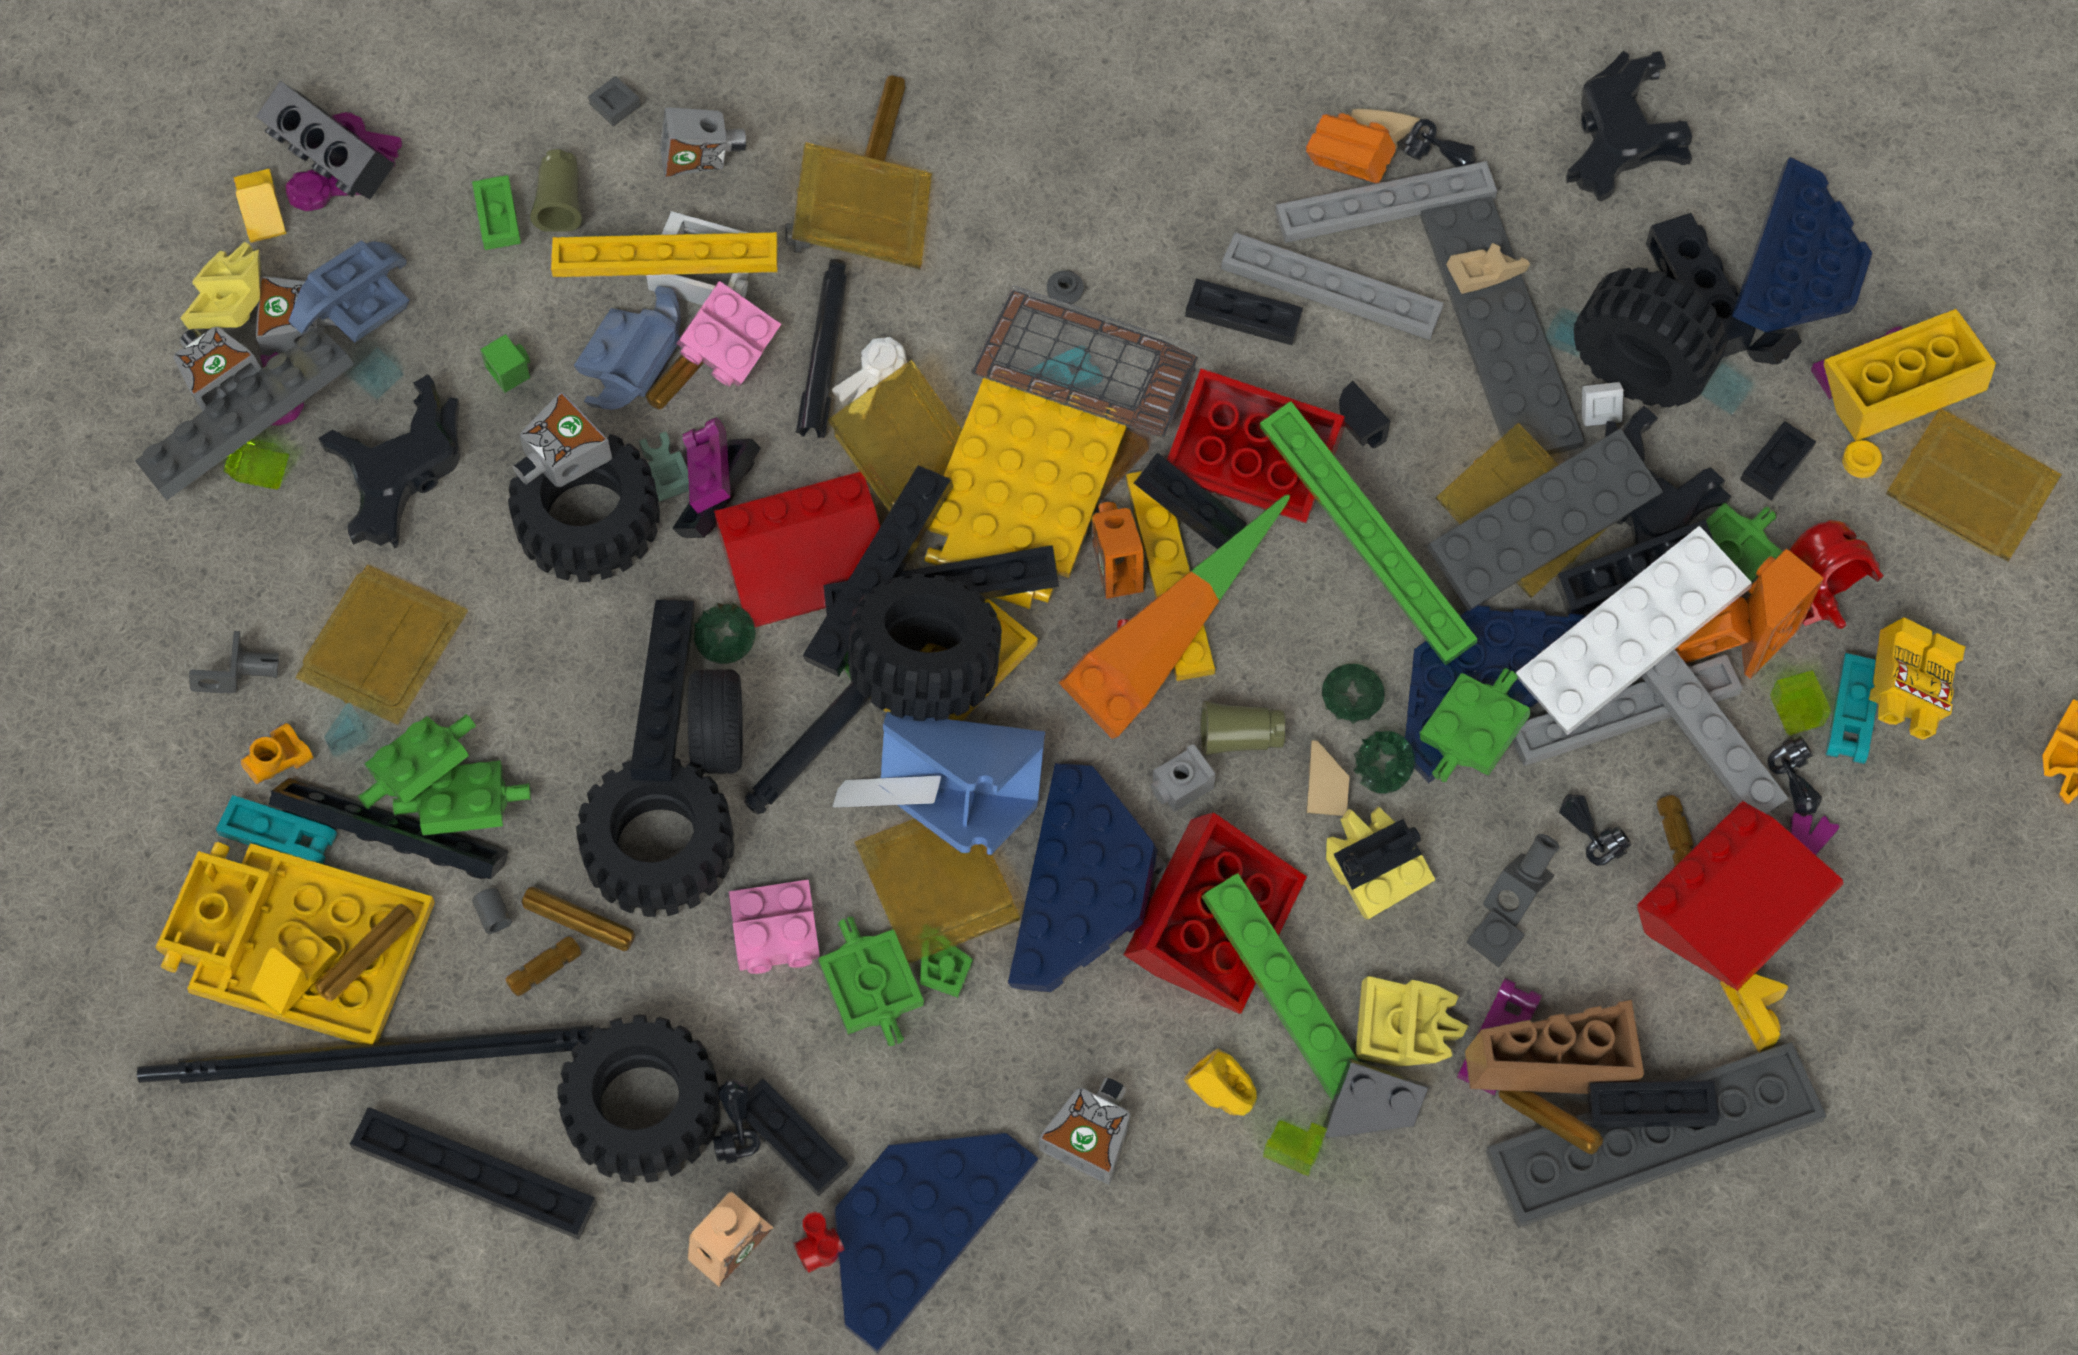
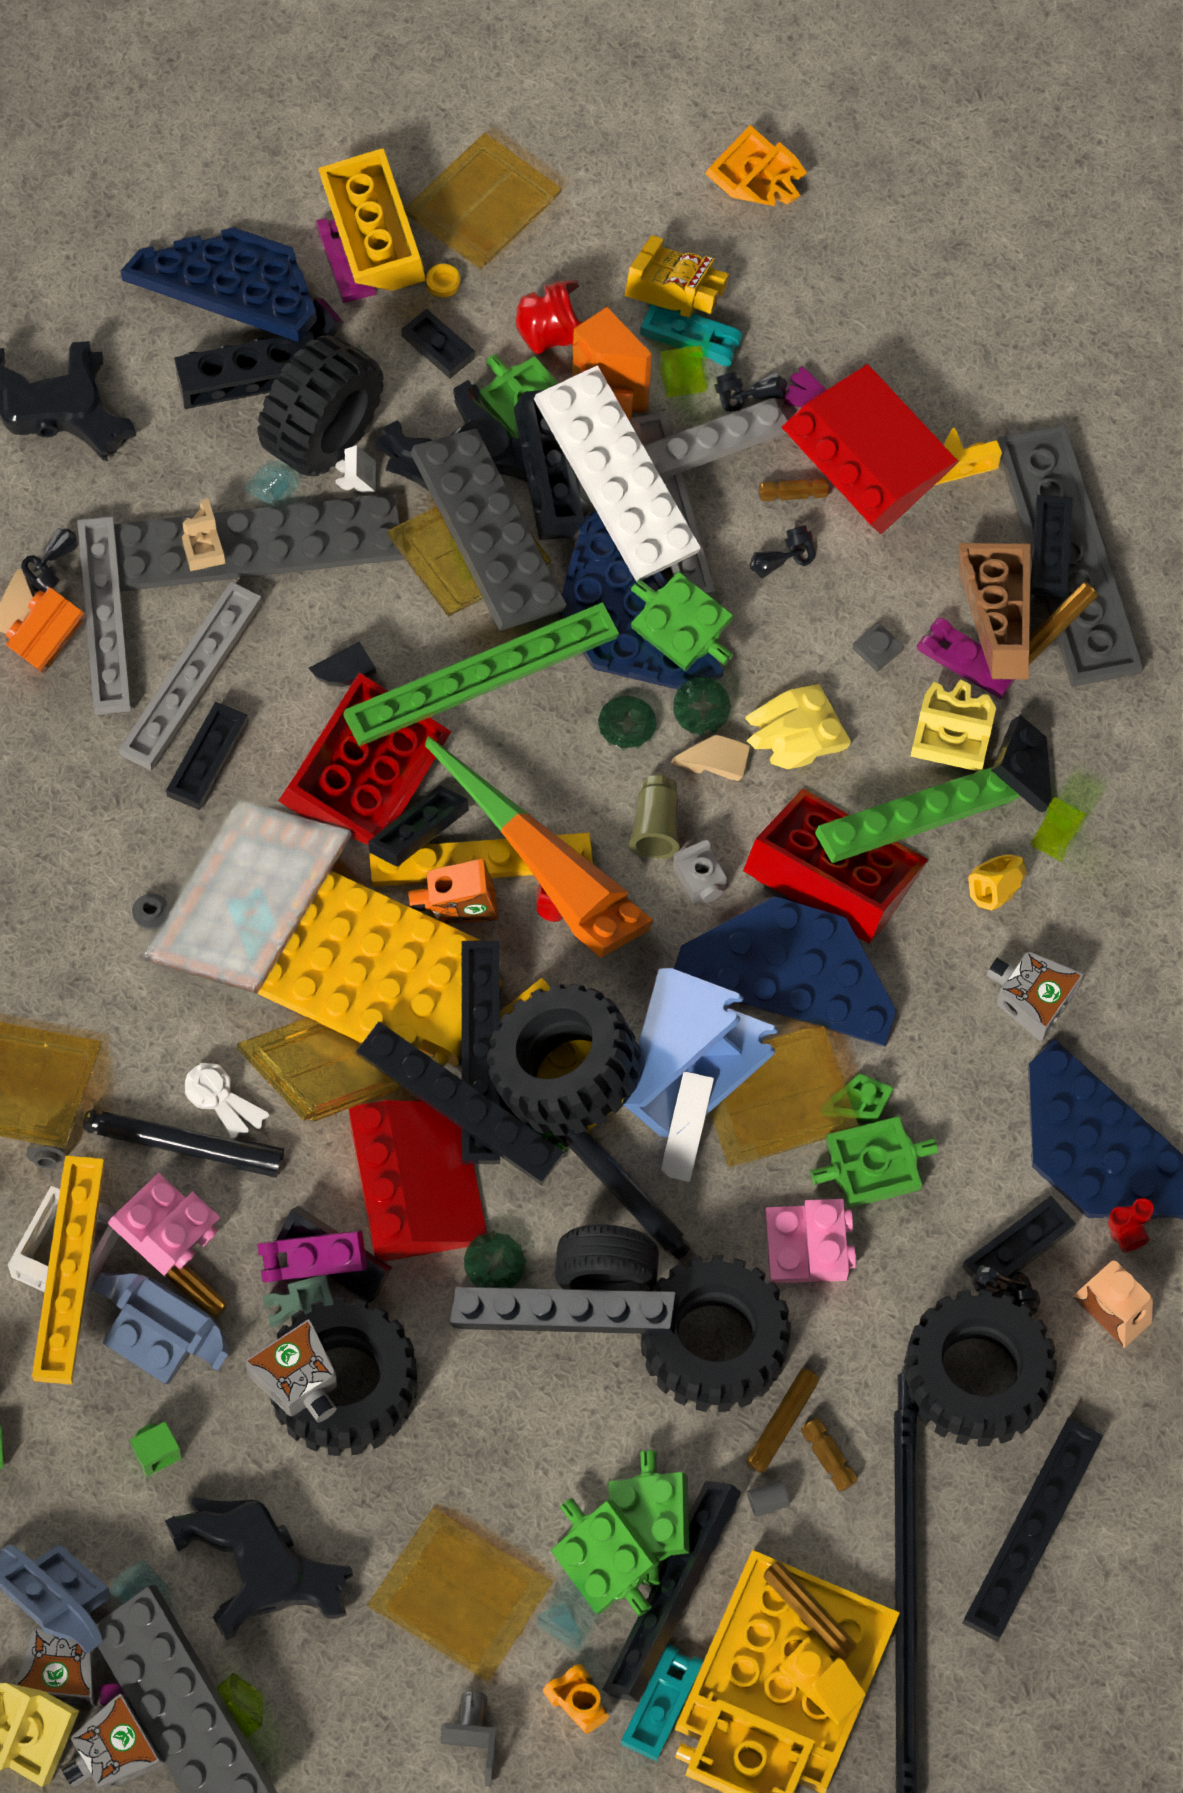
camera: 85 degrees left, 0 degrees up
(1378, 853) = (801, 715): black hinge -> none
(1524, 877) = (829, 611): dark grey bracket -> none

